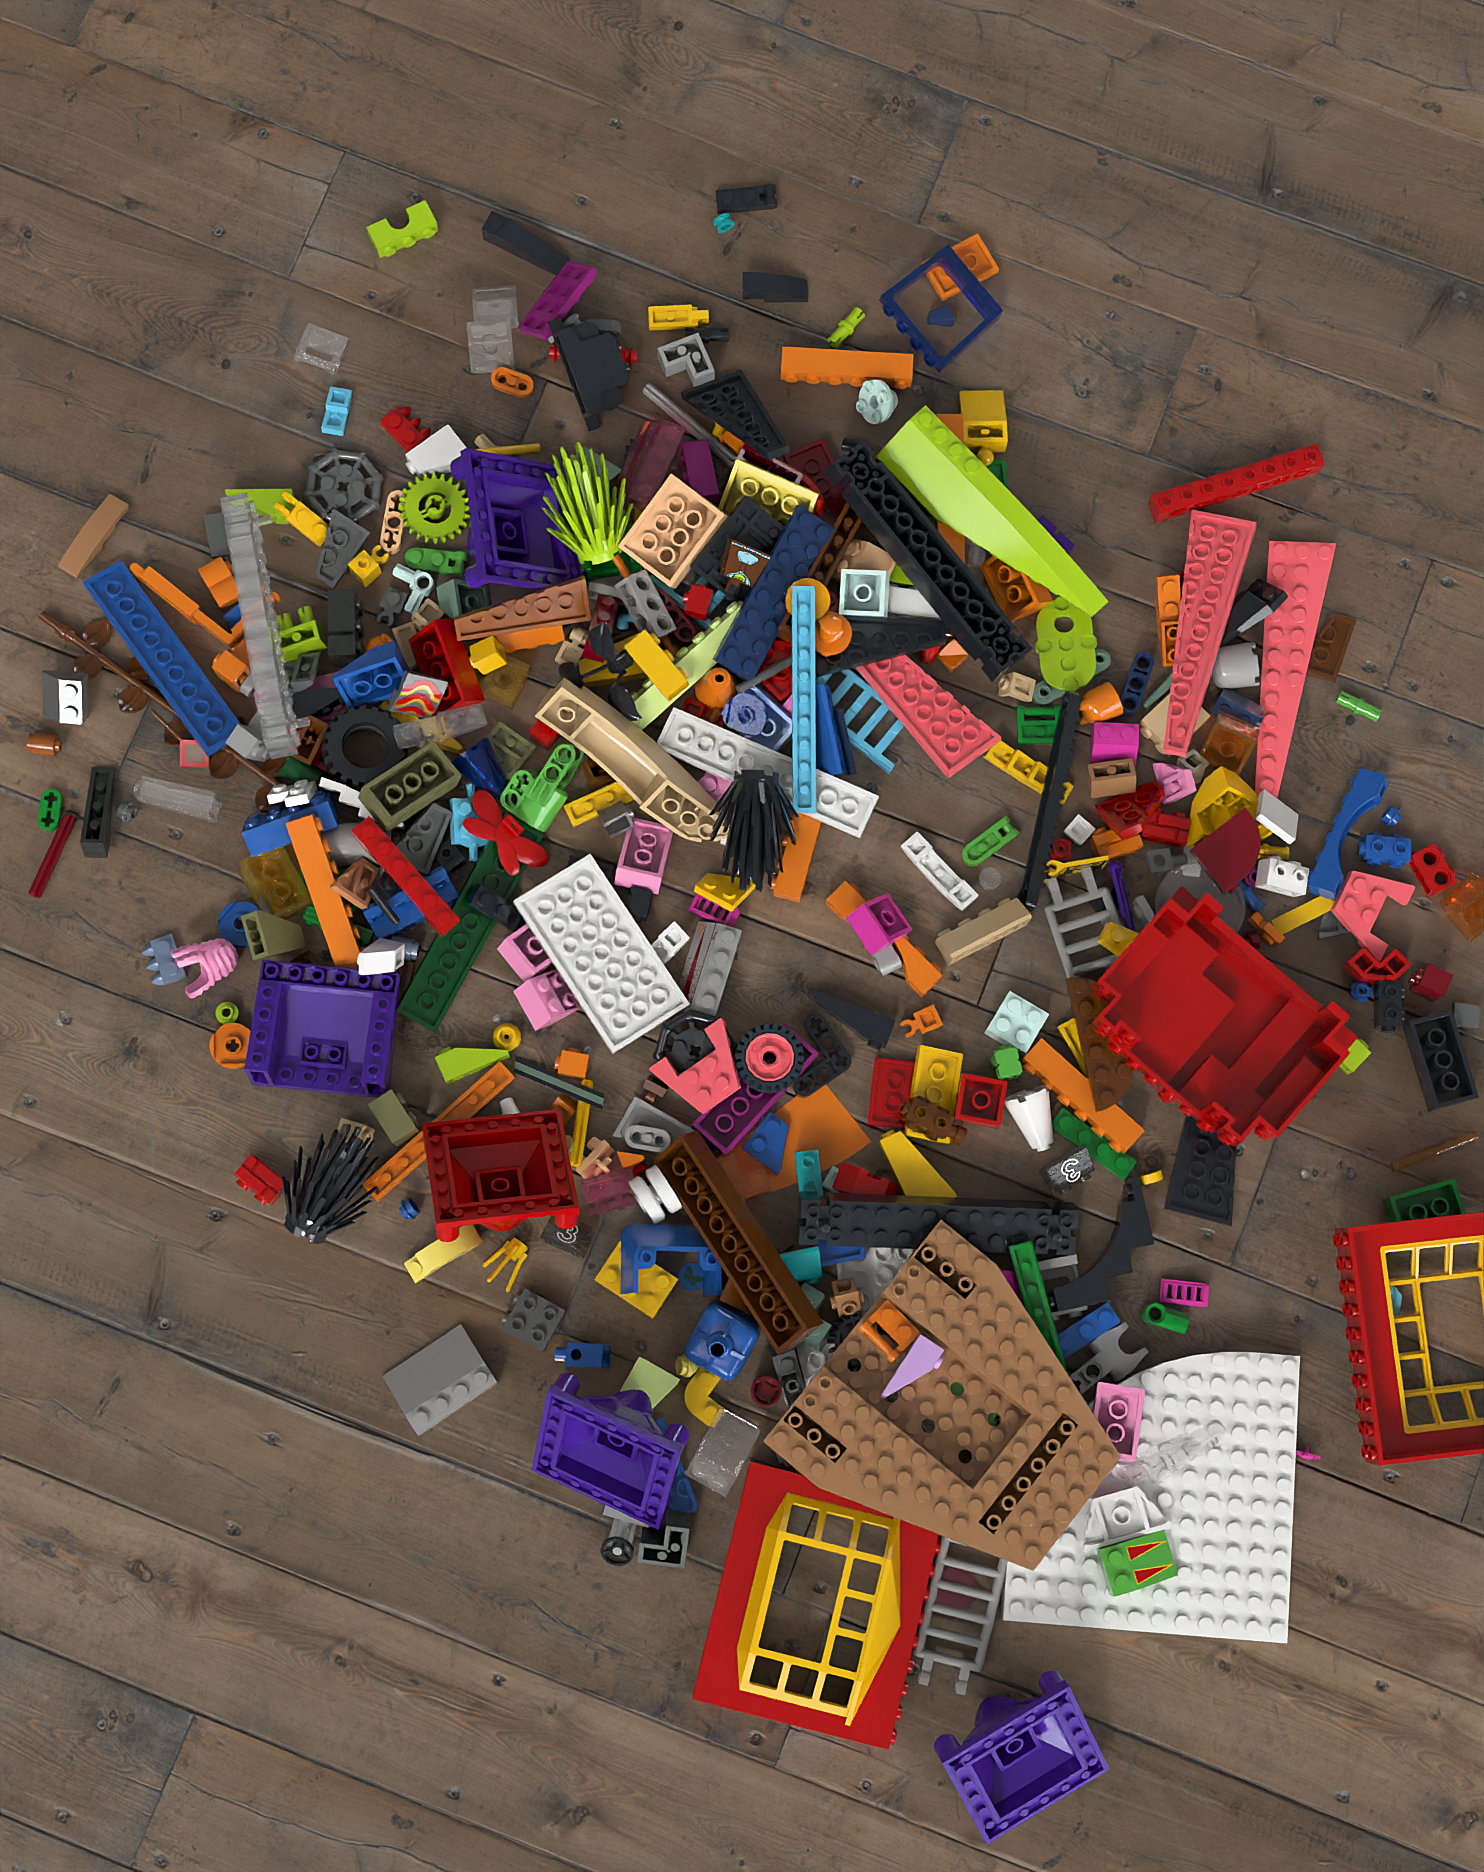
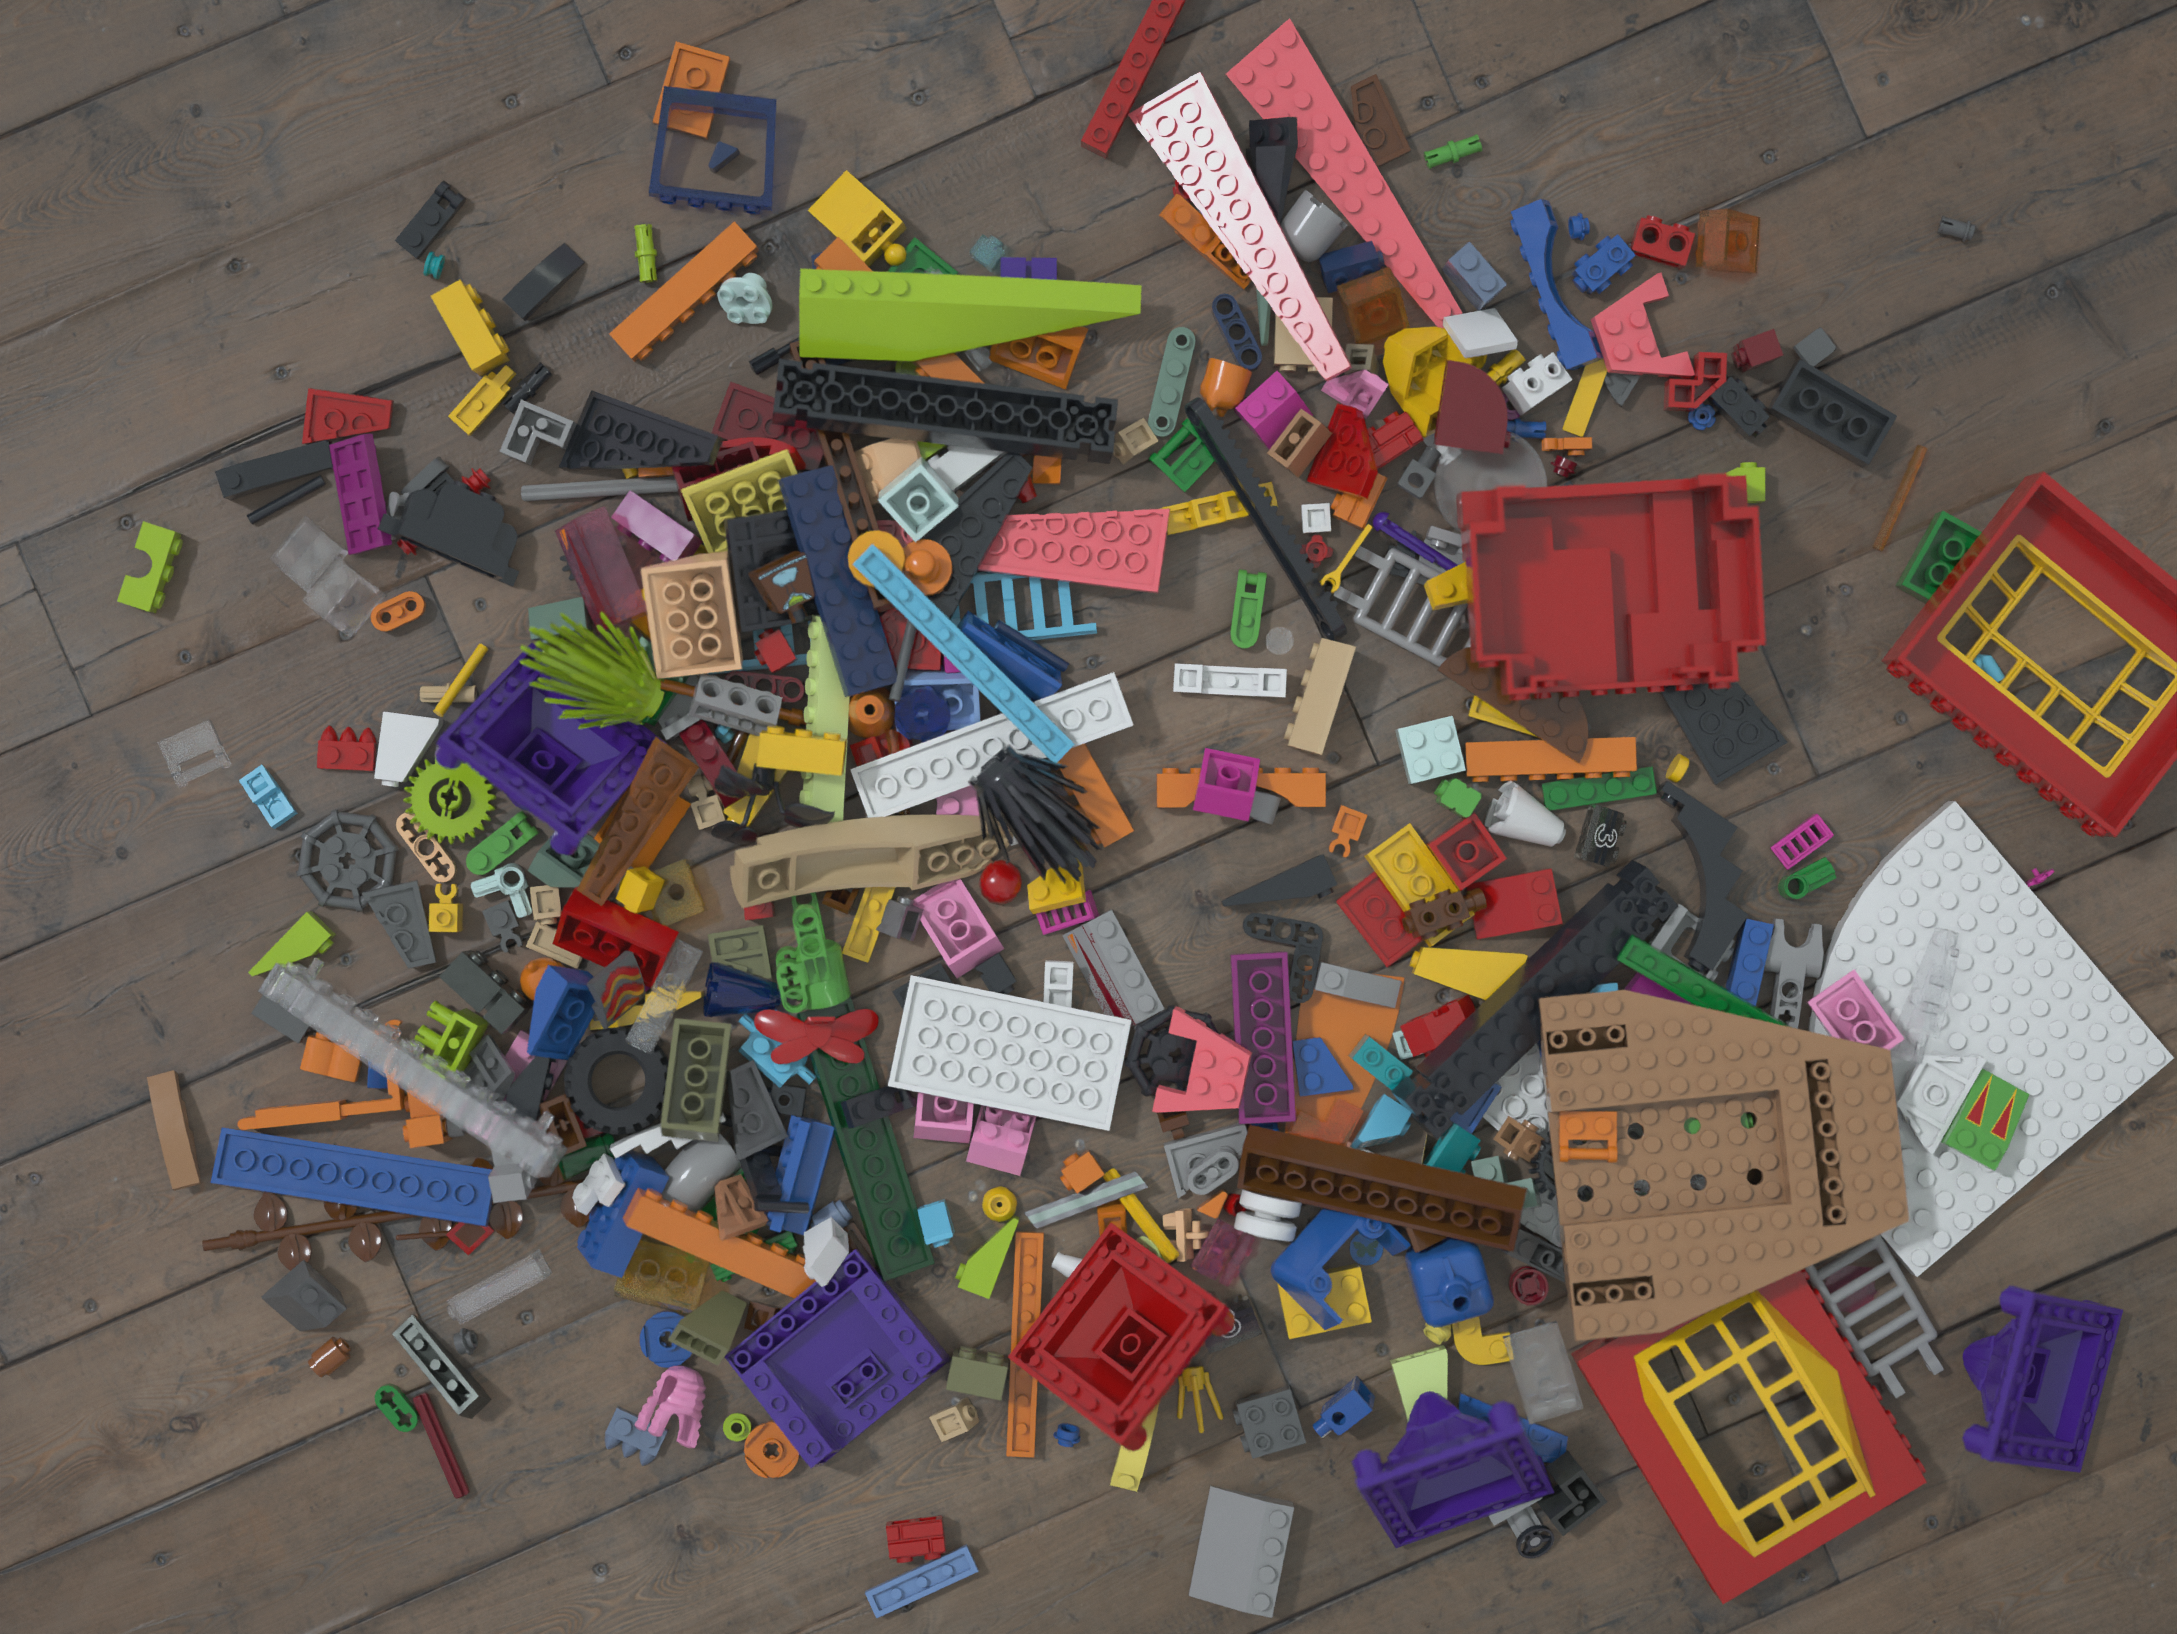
camera: 40 degrees left, 10 degrees up
(238, 1208) = (921, 1581): none -> medium blue plate
(303, 519) = (347, 928): yellow hinge -> none
(332, 1187) = (992, 1519): black plant -> none
(398, 867) = (774, 1162): red arch -> none
(460, 1009) = (936, 1223): none -> medium azure slope
(511, 266) = (286, 499): none -> black bar
(588, 248) = (343, 414): none -> red wing
(693, 856) = (1000, 882): none -> red hair
(710, 271) = (471, 327): none -> yellow brick
(774, 1040) = (1273, 1005): wheel -> none
(775, 1210) = (1383, 1123): none -> medium azure slope
(839, 1115) = (1357, 984): none -> light grey slope
(917, 1362) = (1639, 1142): lavender slope -> none
(979, 1162) = (1517, 904): none -> red slope
(1038, 505) = (988, 252): none -> clear light blue plate
(1066, 657) = (1148, 369): lime piece -> none
(1304, 781) = (1474, 276): none -> sand blue brick

